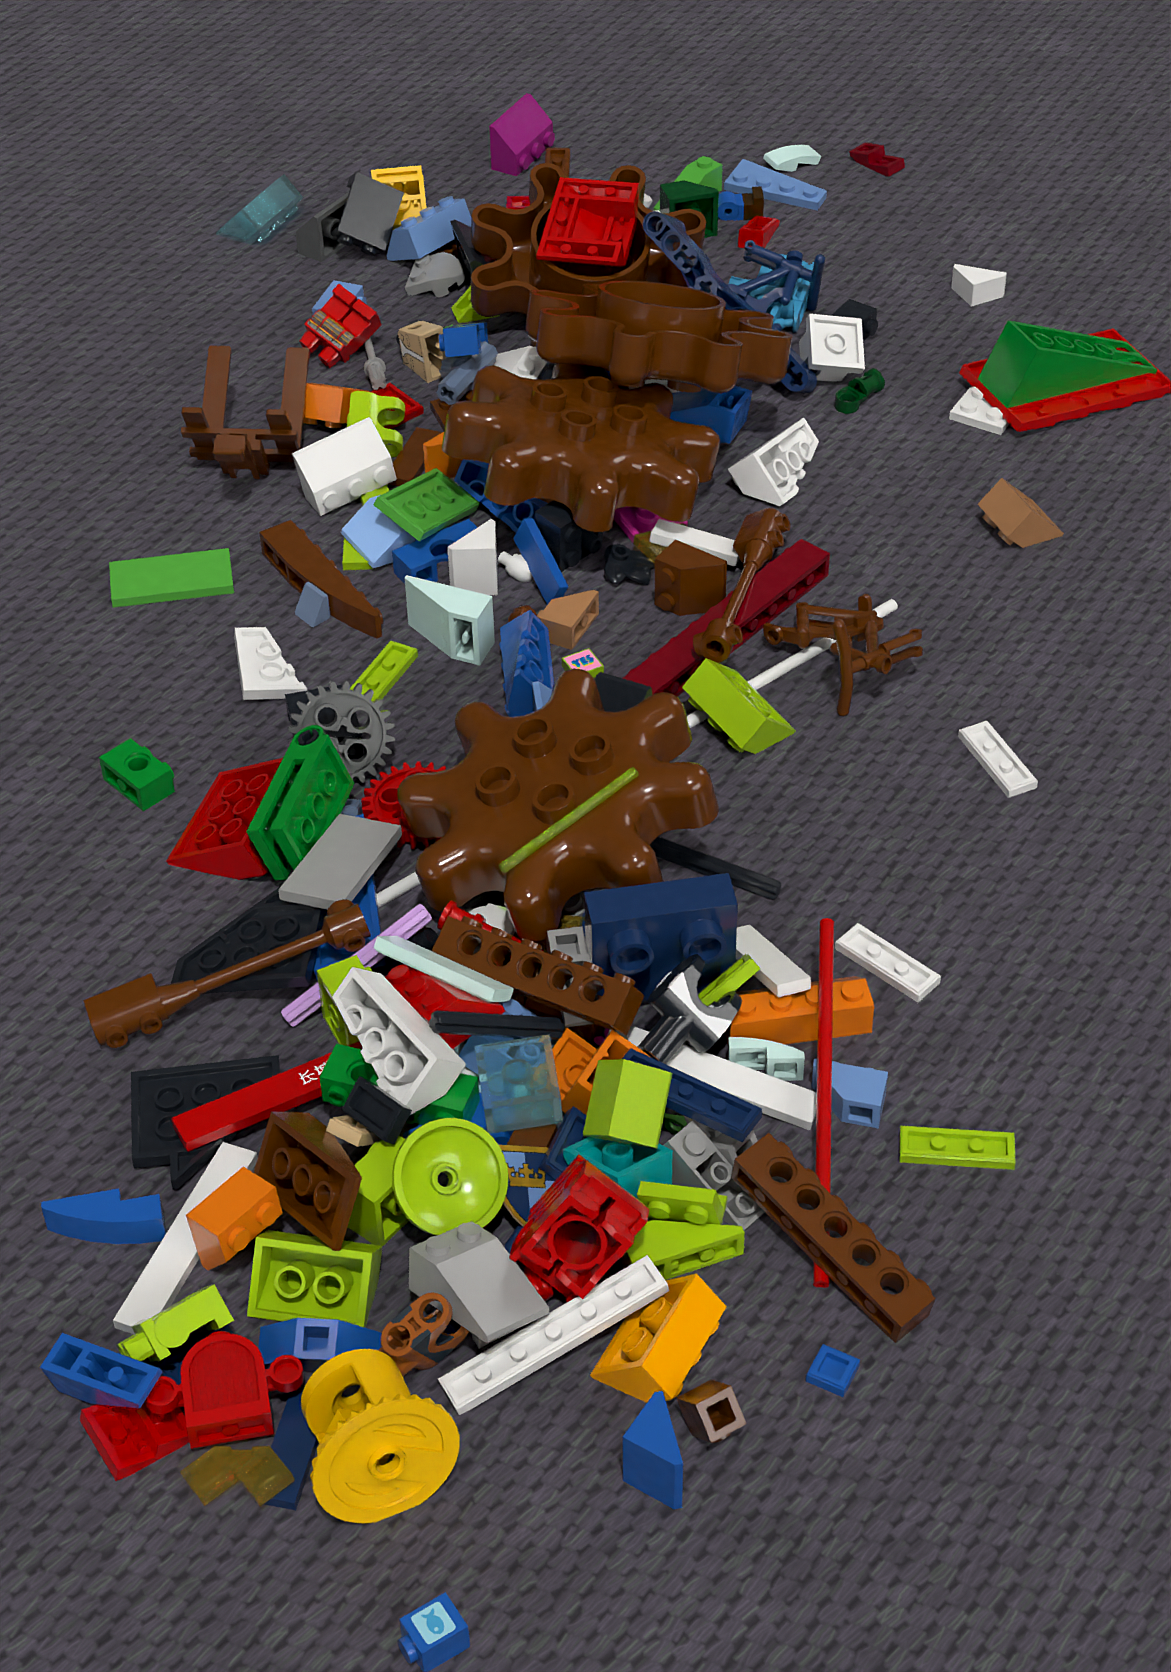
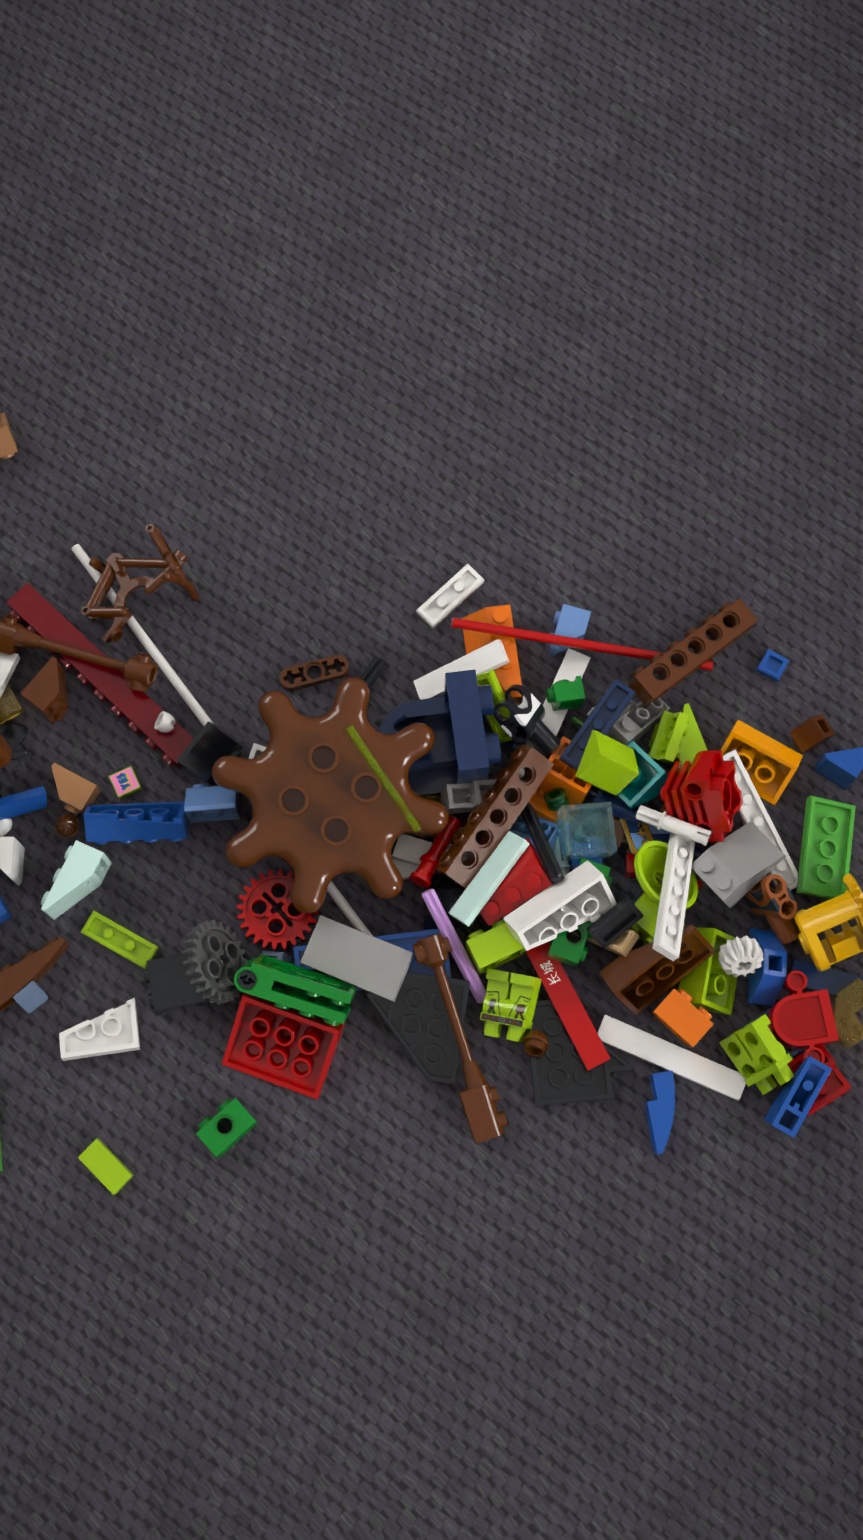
camera: 90 degrees left, 30 degrees up
(105, 682) = (105, 1166): none -> lime tile
(216, 1058) = (535, 1043): none -> reddish brown plate
(275, 1031) = (511, 1002): none -> lime hips
(326, 1287) = (740, 956): none -> white gear
(416, 1172) = (673, 896): none -> white tile
(524, 1440) = (825, 848): none -> bright green tile
(538, 1180) = (673, 825): none -> white axle
(570, 1057) = (556, 798): none -> dark green bush
(655, 669) = (165, 722): none -> white hinge
(735, 708) = (198, 668): lime slope -> none
(741, 1074) = (566, 694): none -> green brick
(753, 815) = (333, 674): none -> reddish brown beam
(773, 1057) = (540, 675): light aqua slope -> none
(957, 1147) = (608, 574): lime tile -> none
(997, 759) = (257, 498): white tile -> none

